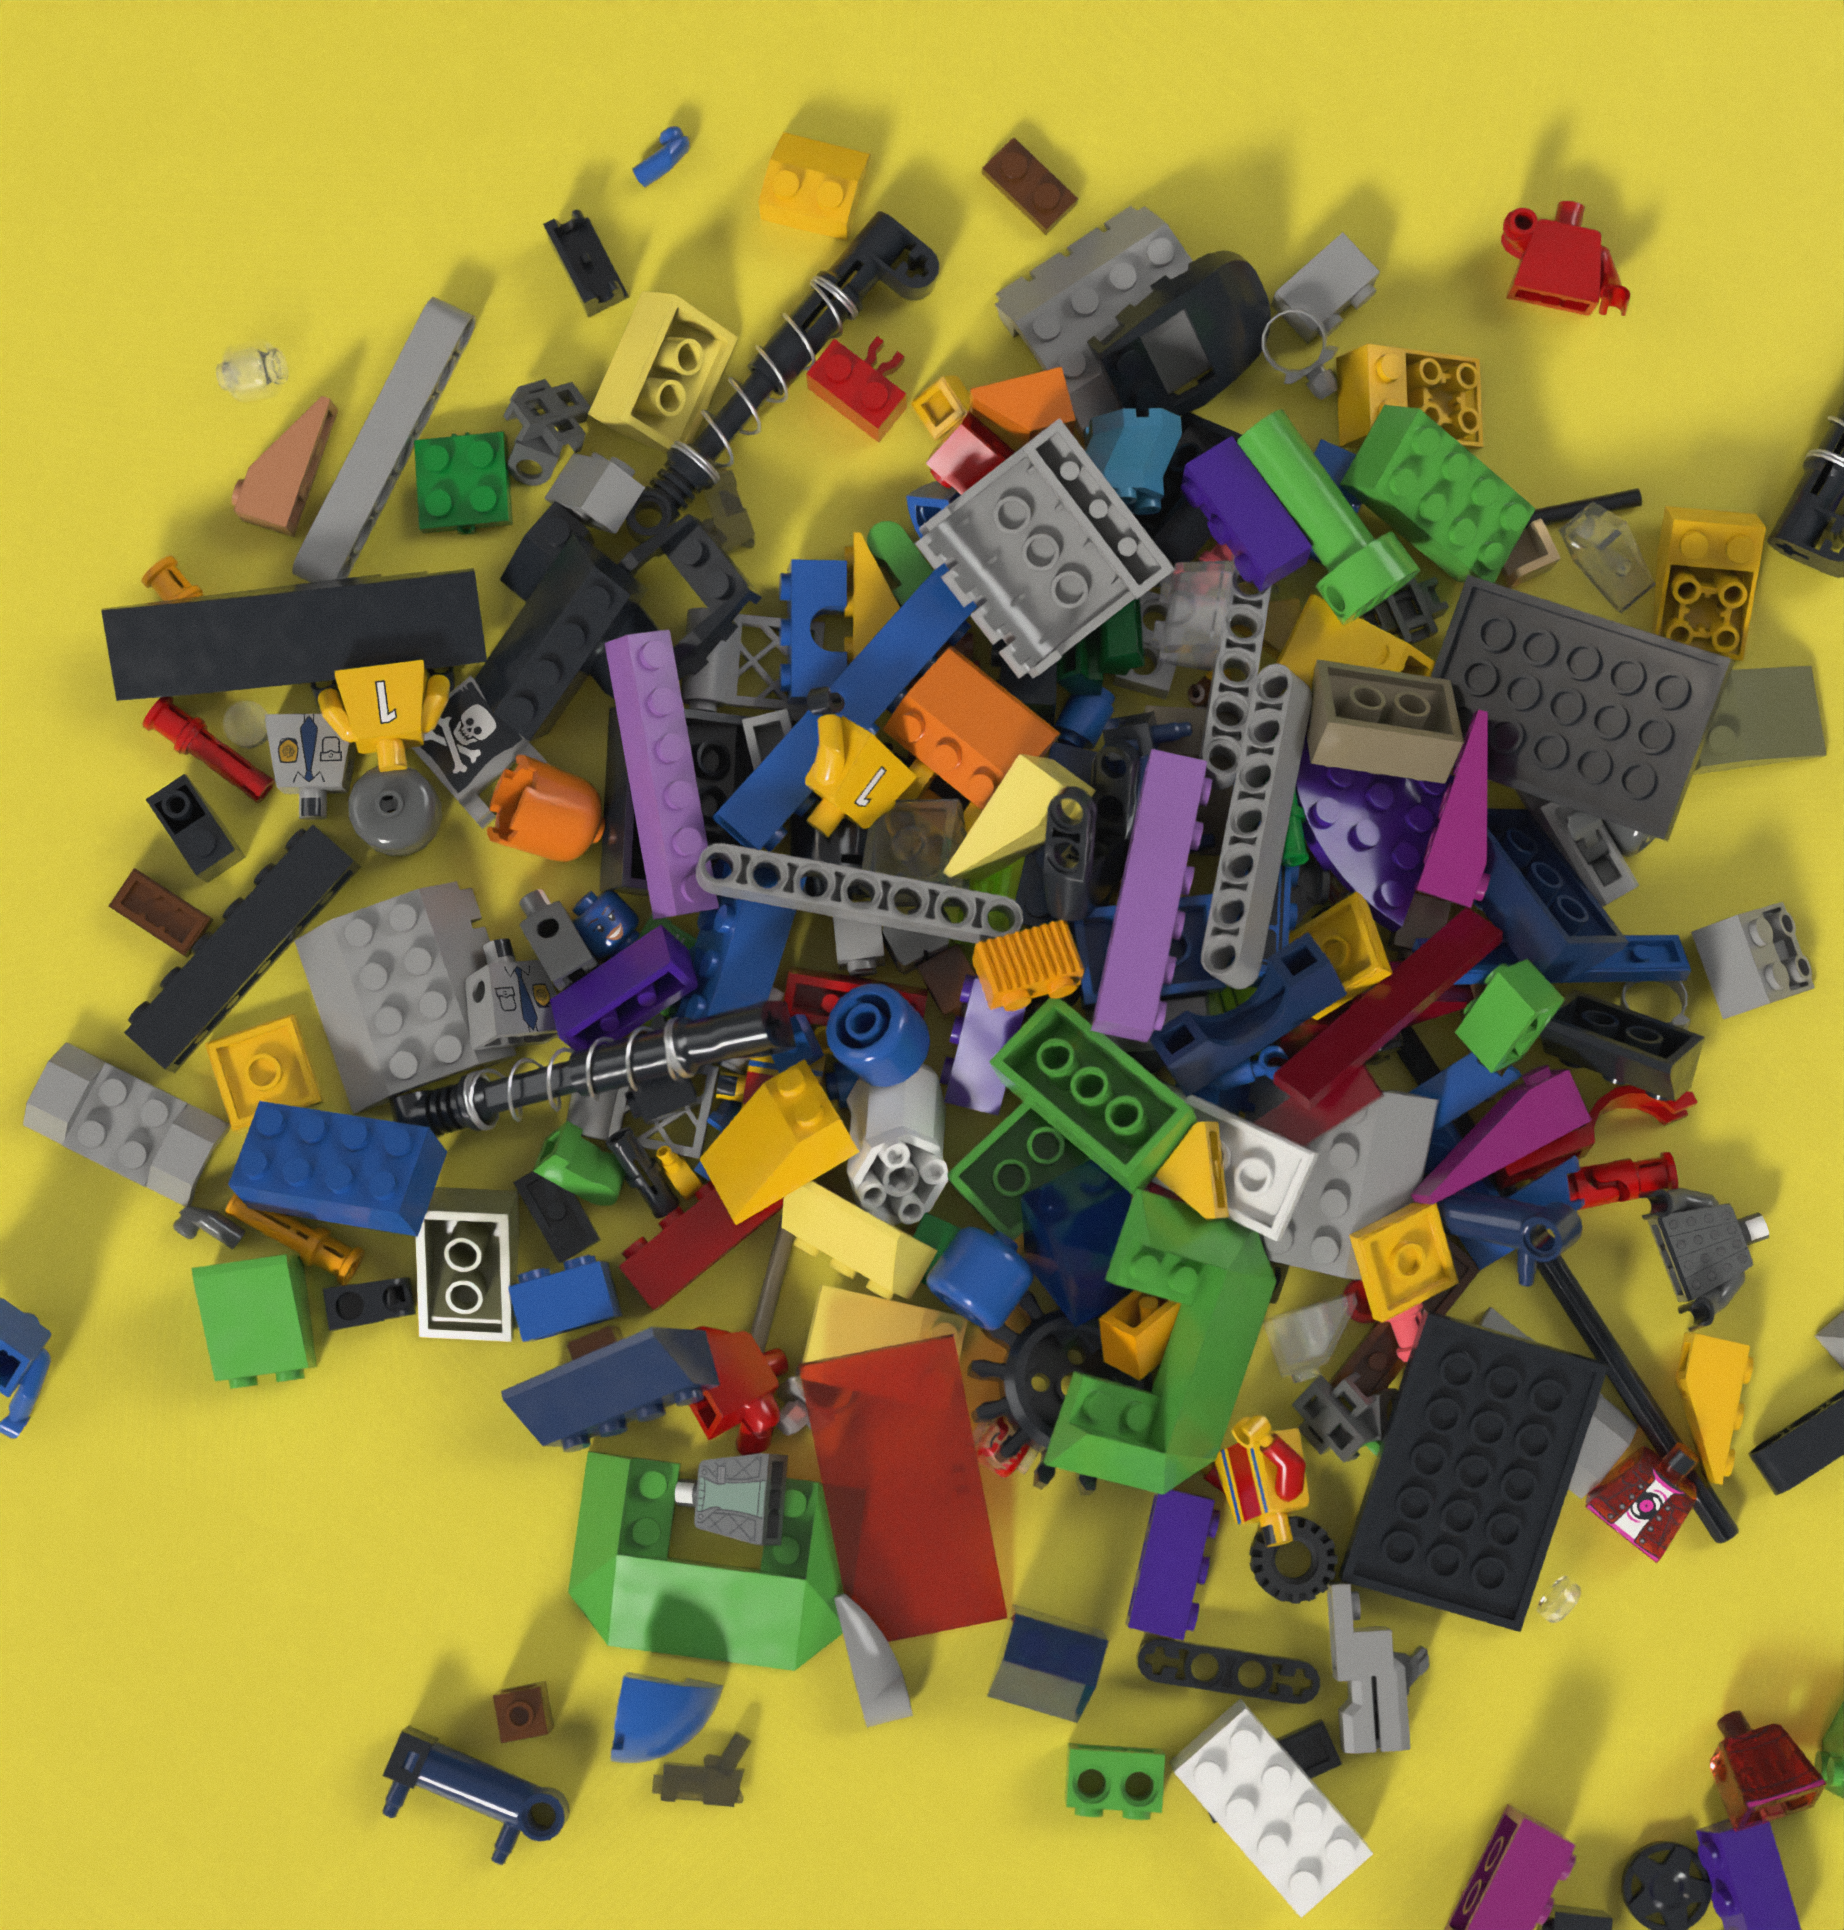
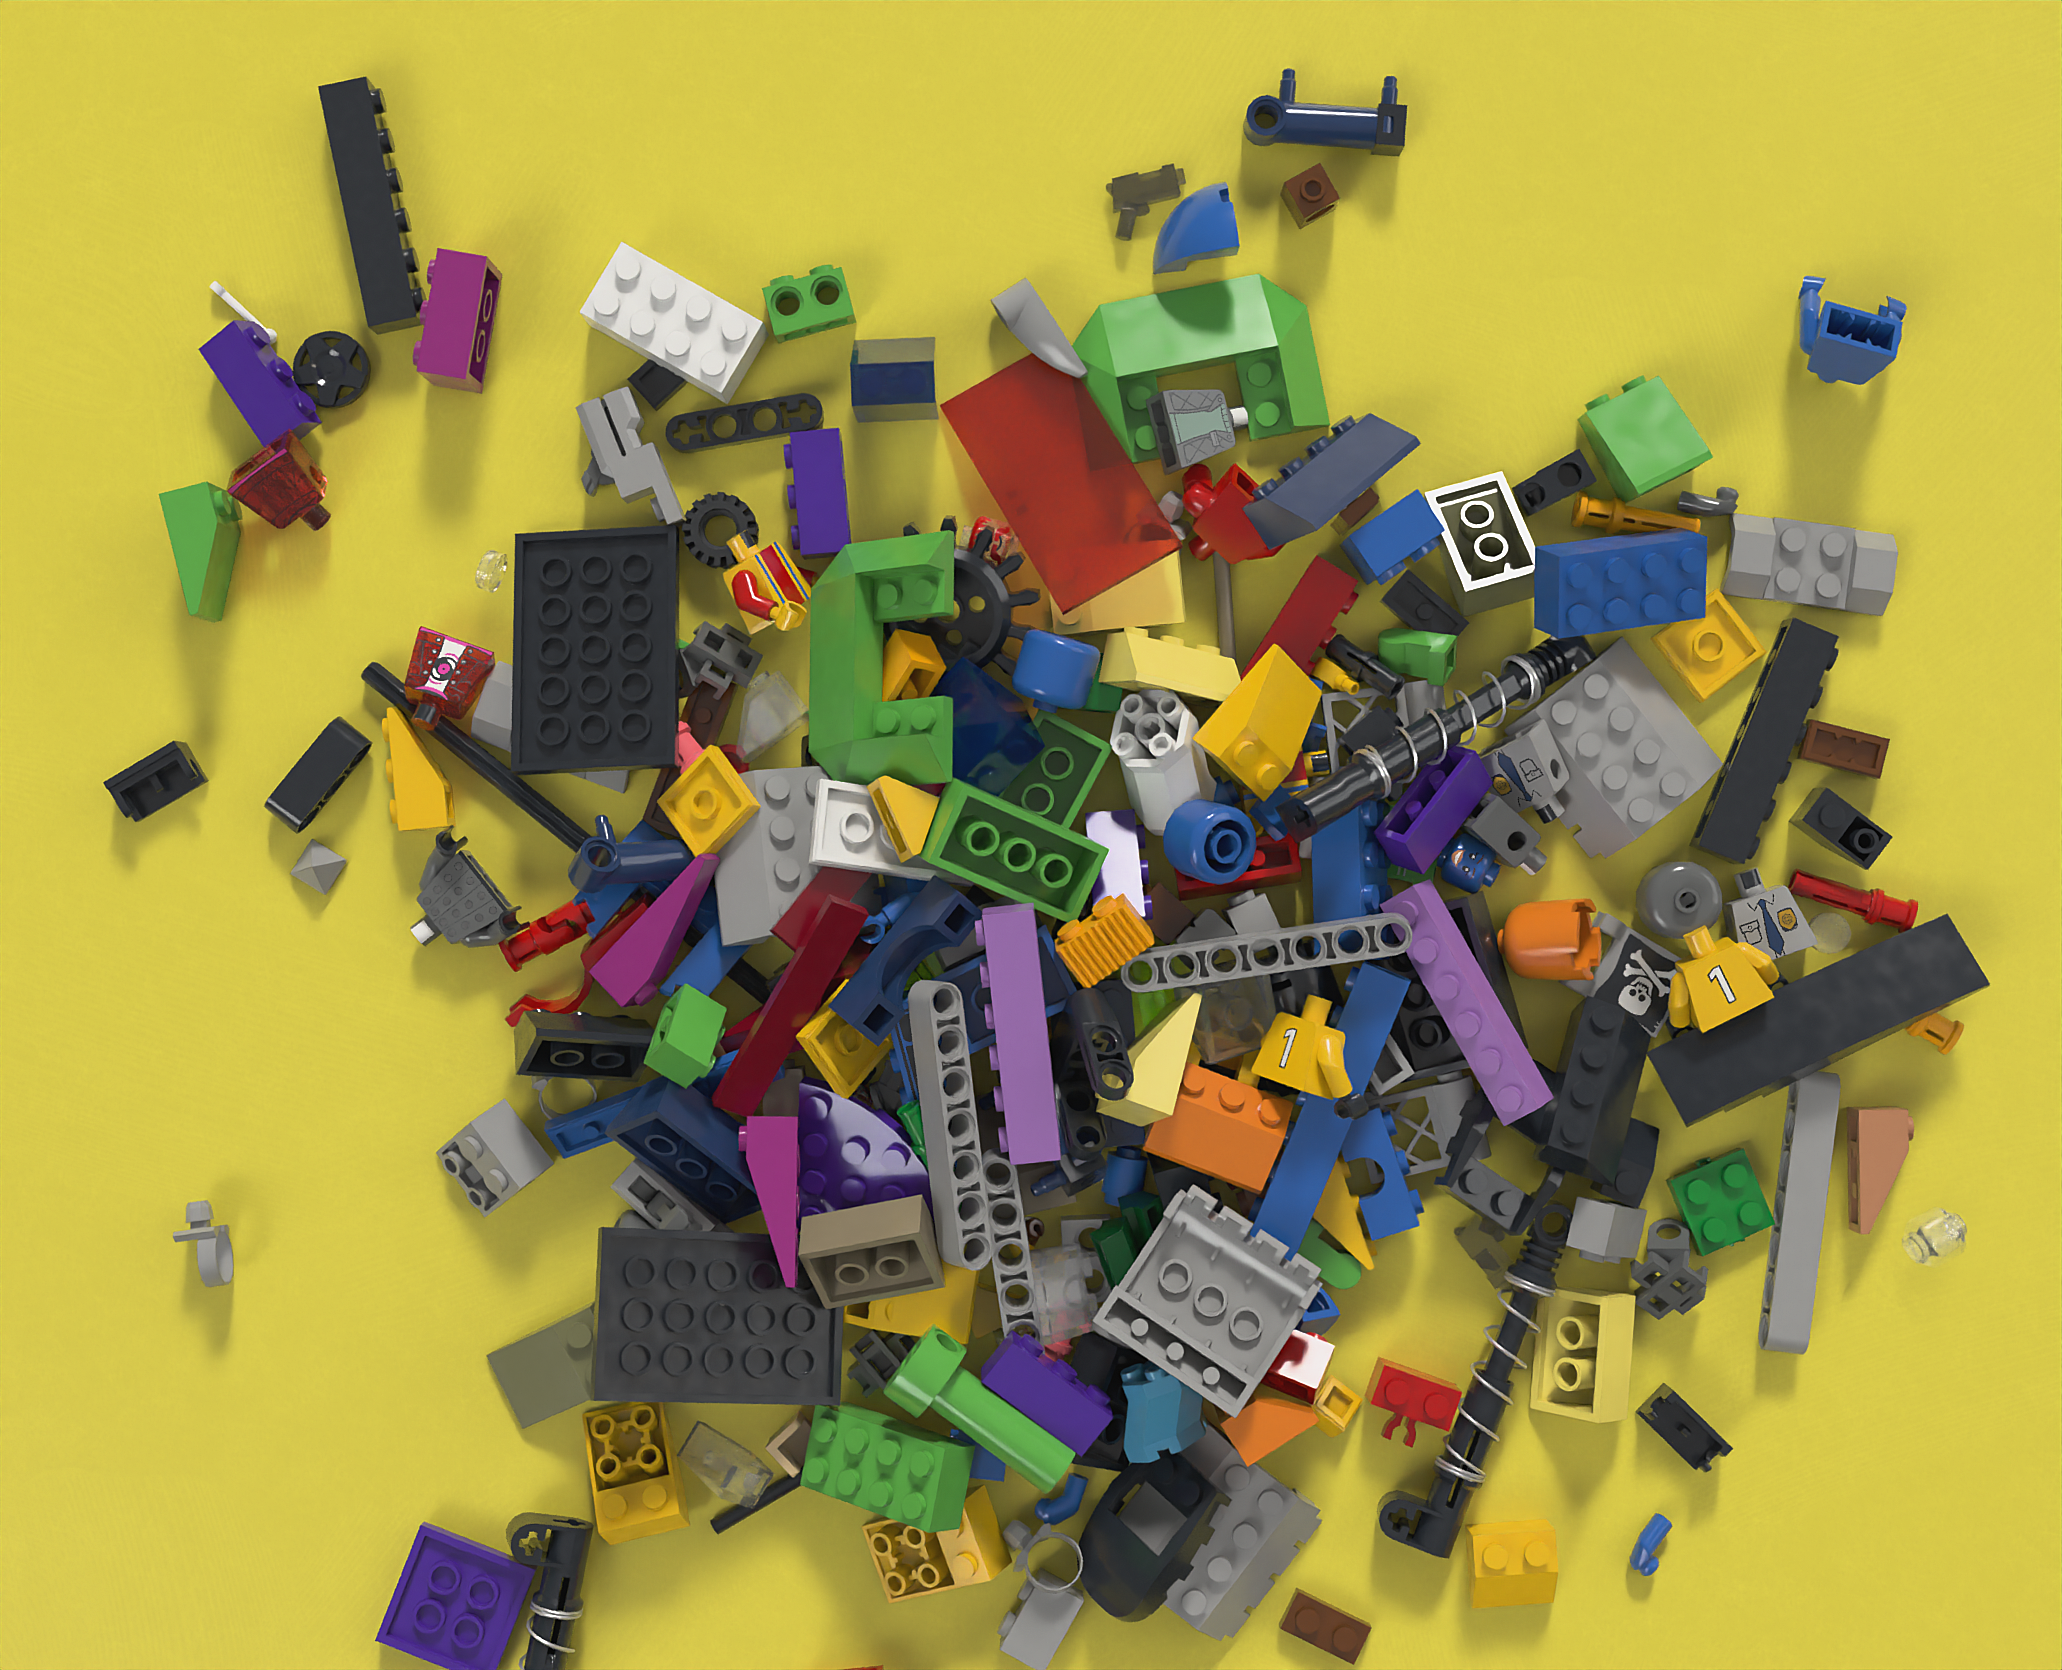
camera: 160 degrees right, 5 degrees up
(1259, 397) = (1064, 1506): none -> blue arm

